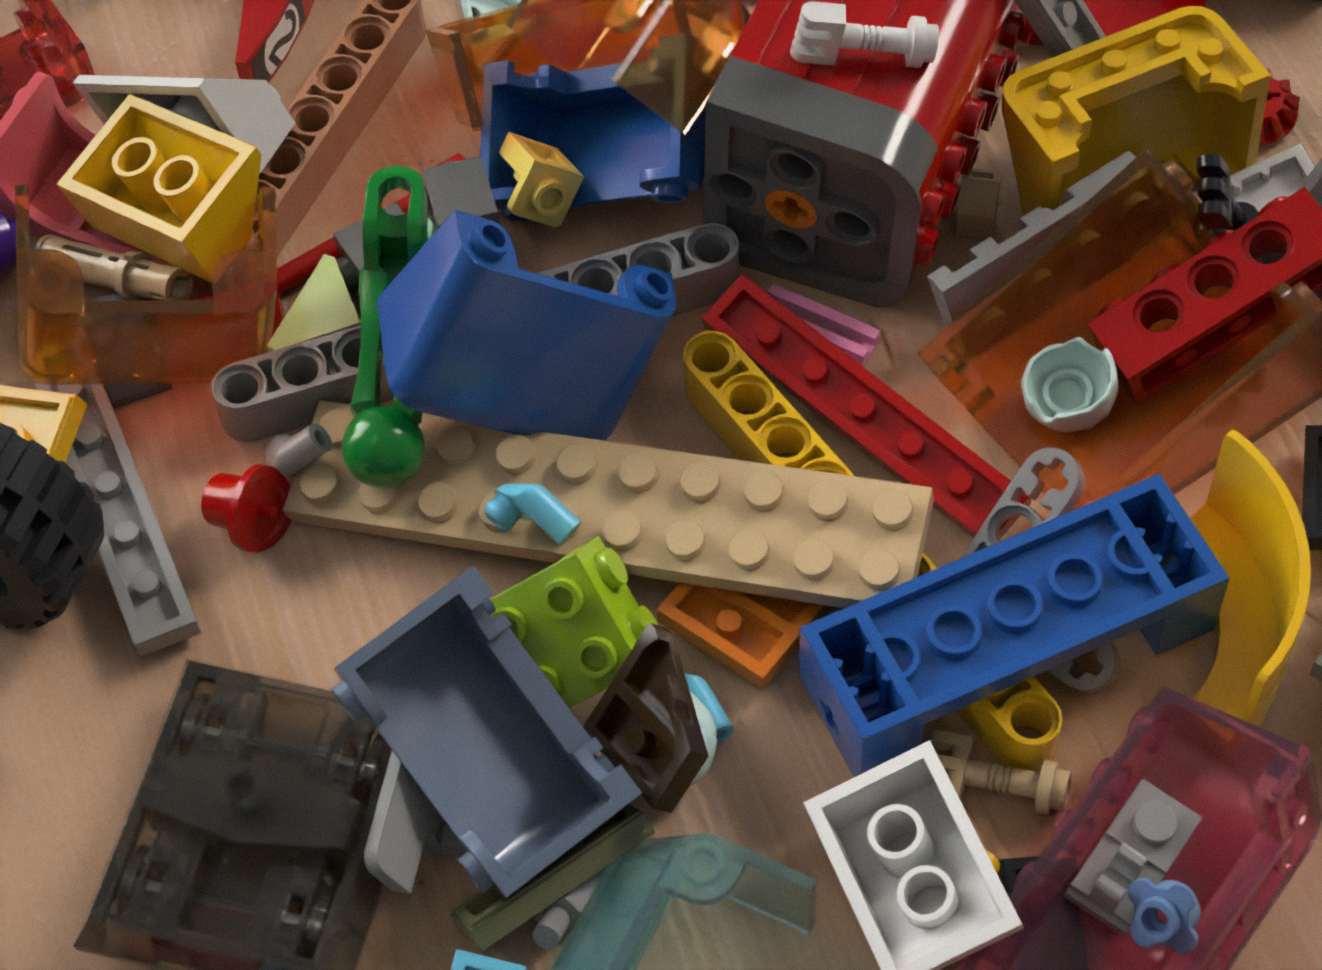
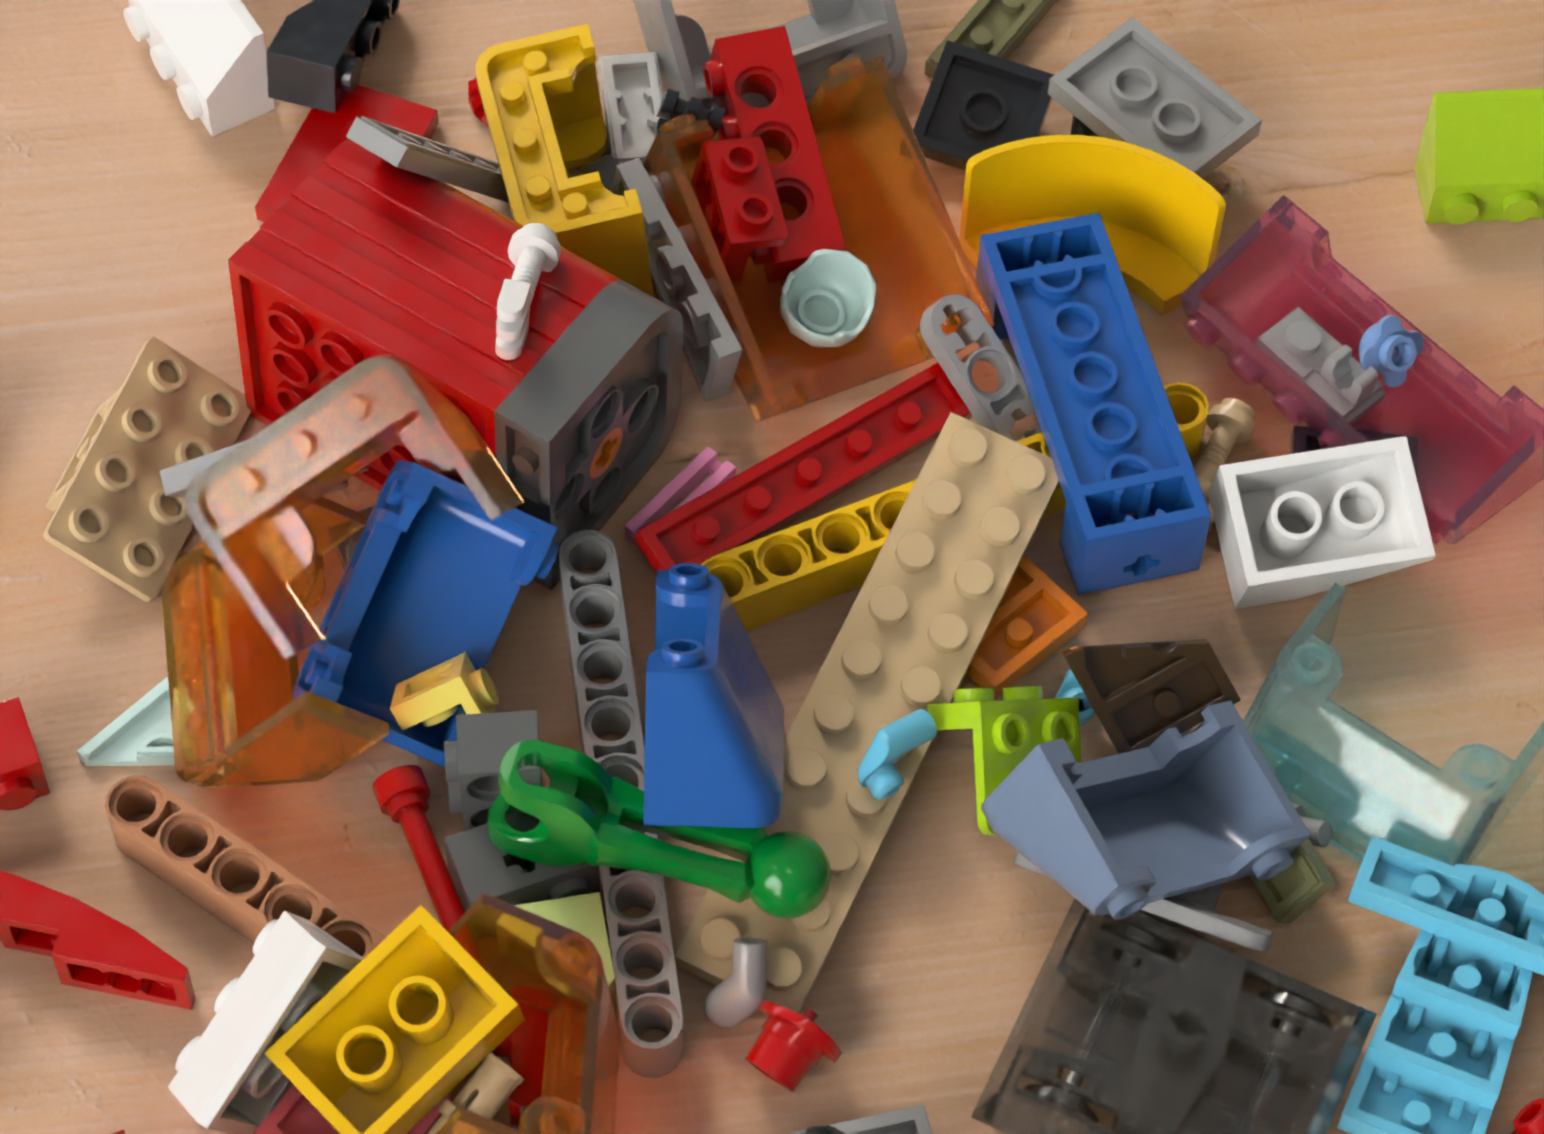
camera: 85 degrees left, 0 degrees up
(1132, 264) = (738, 200): none -> red bracket

